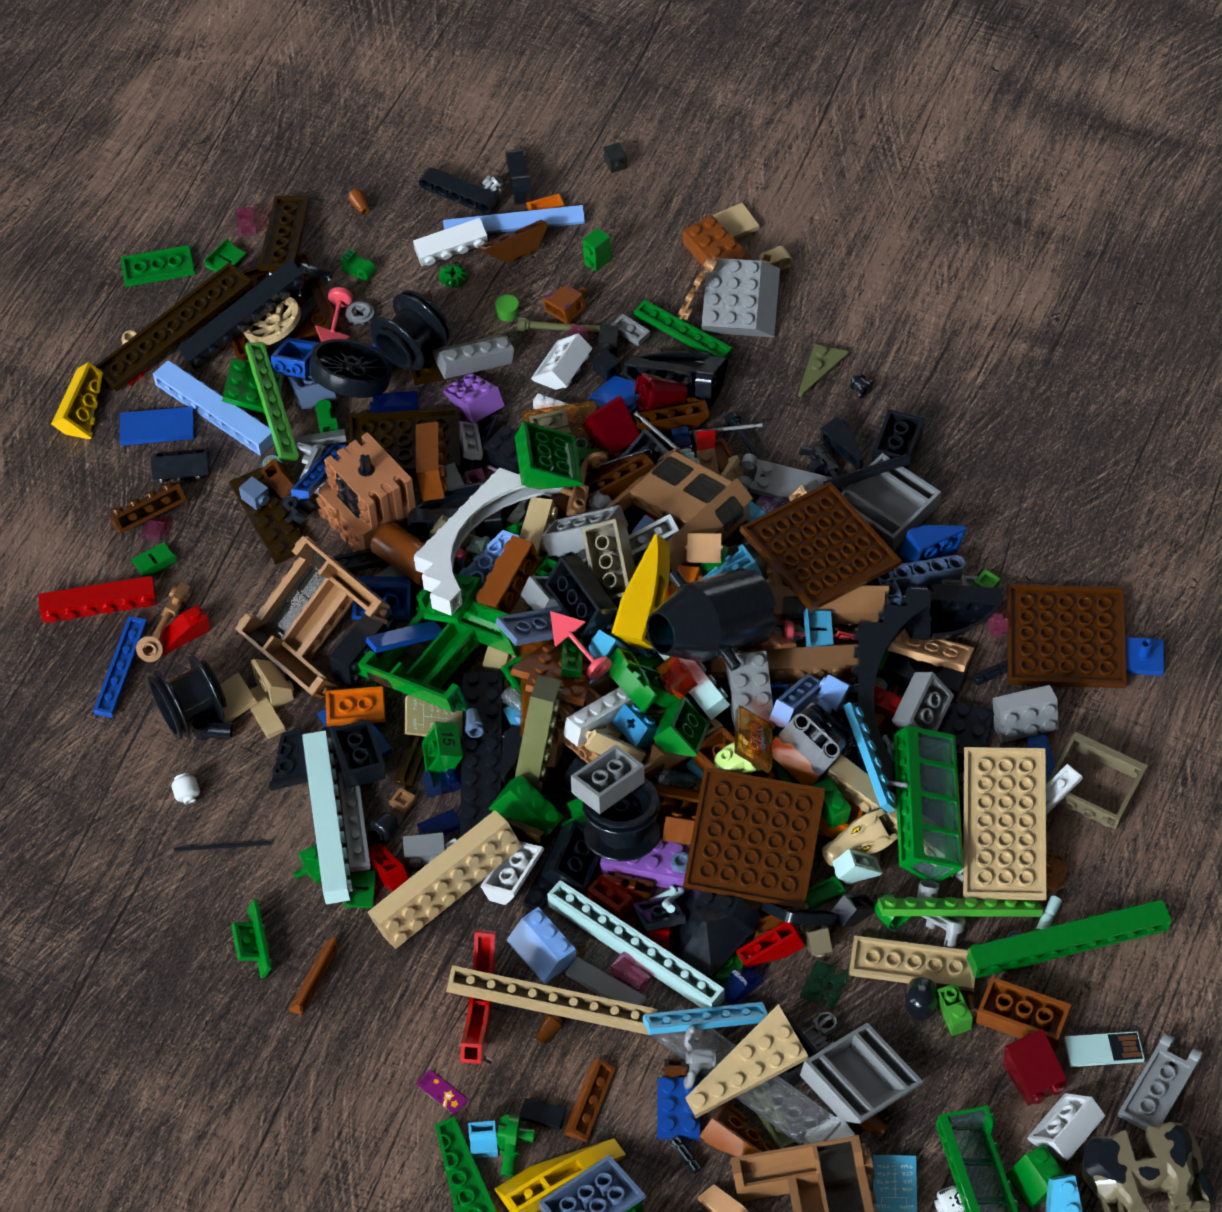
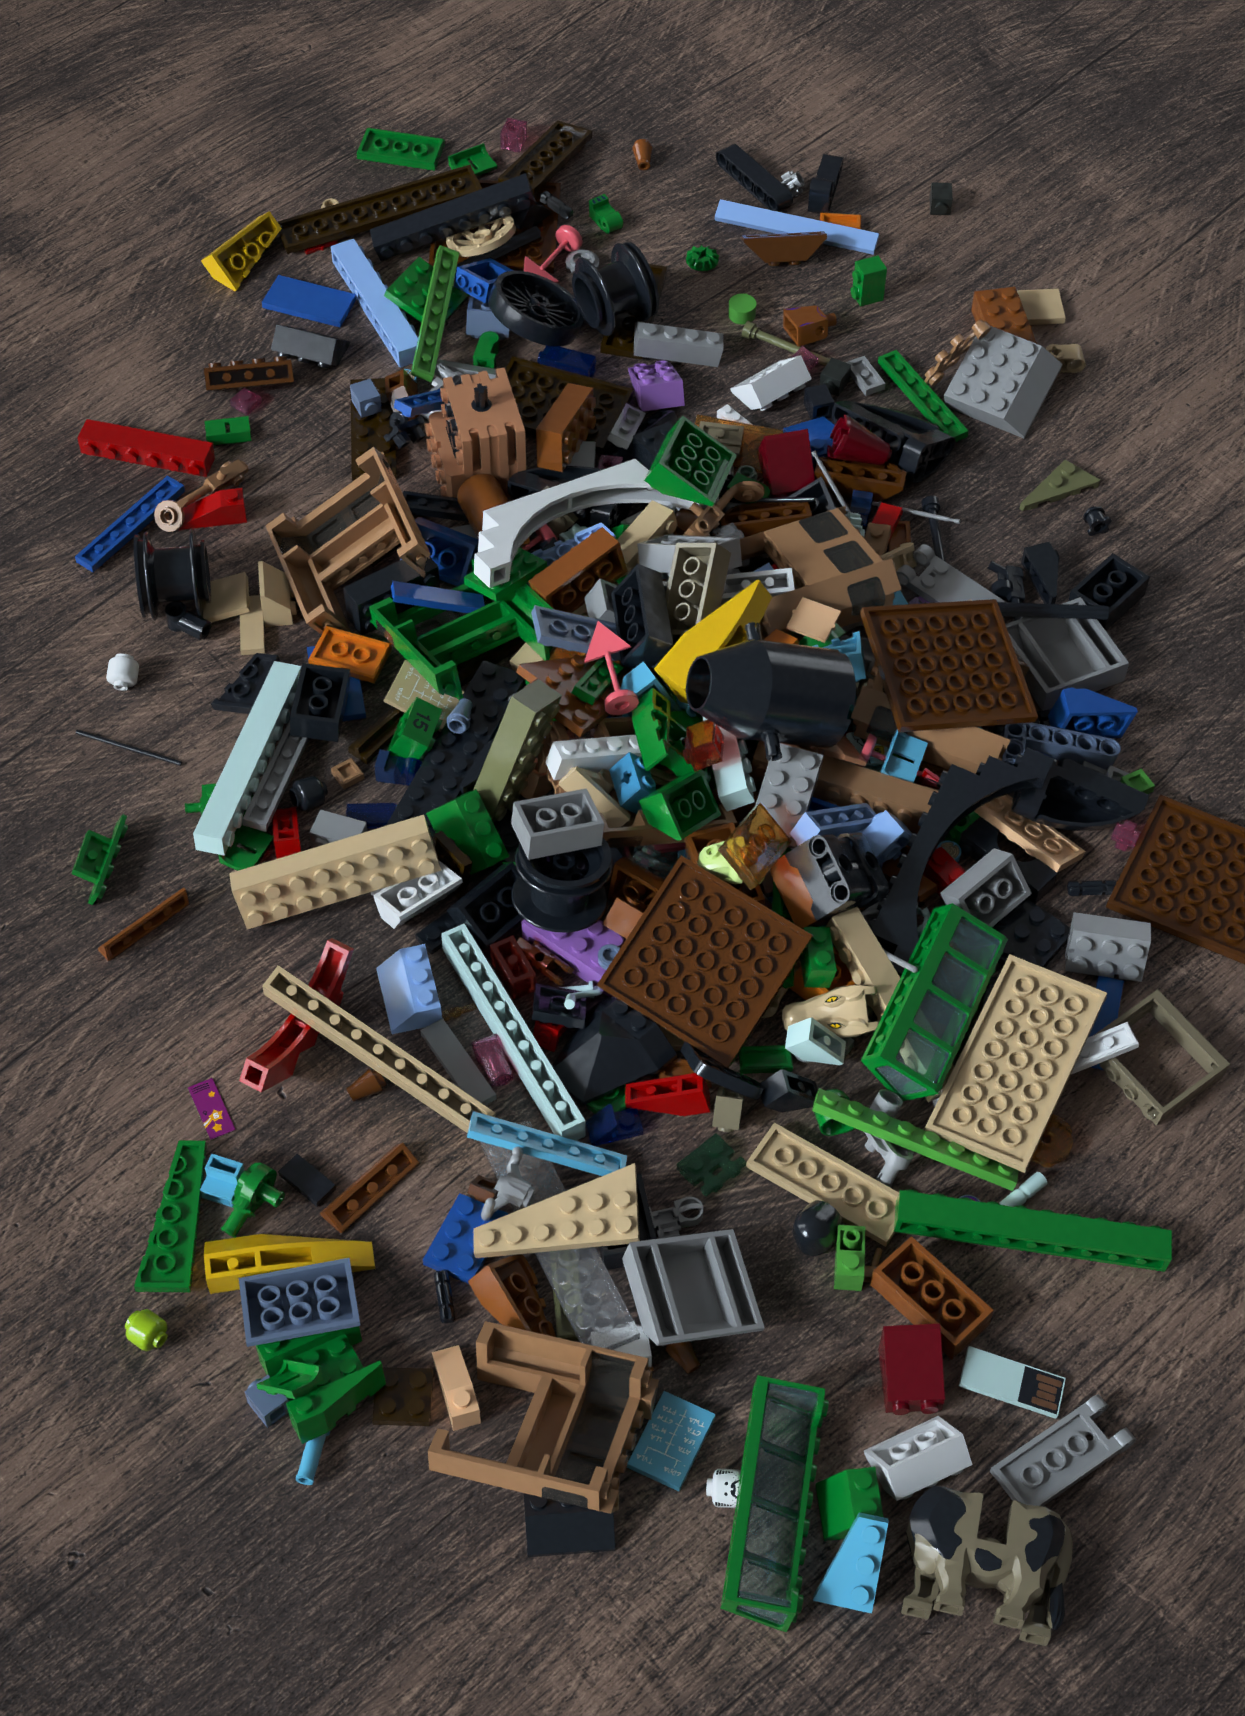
camera: 20 degrees right, 0 degrees up
(450, 242) = (715, 222): white brick -> none
(872, 763) = (887, 922): medium azure plate -> none

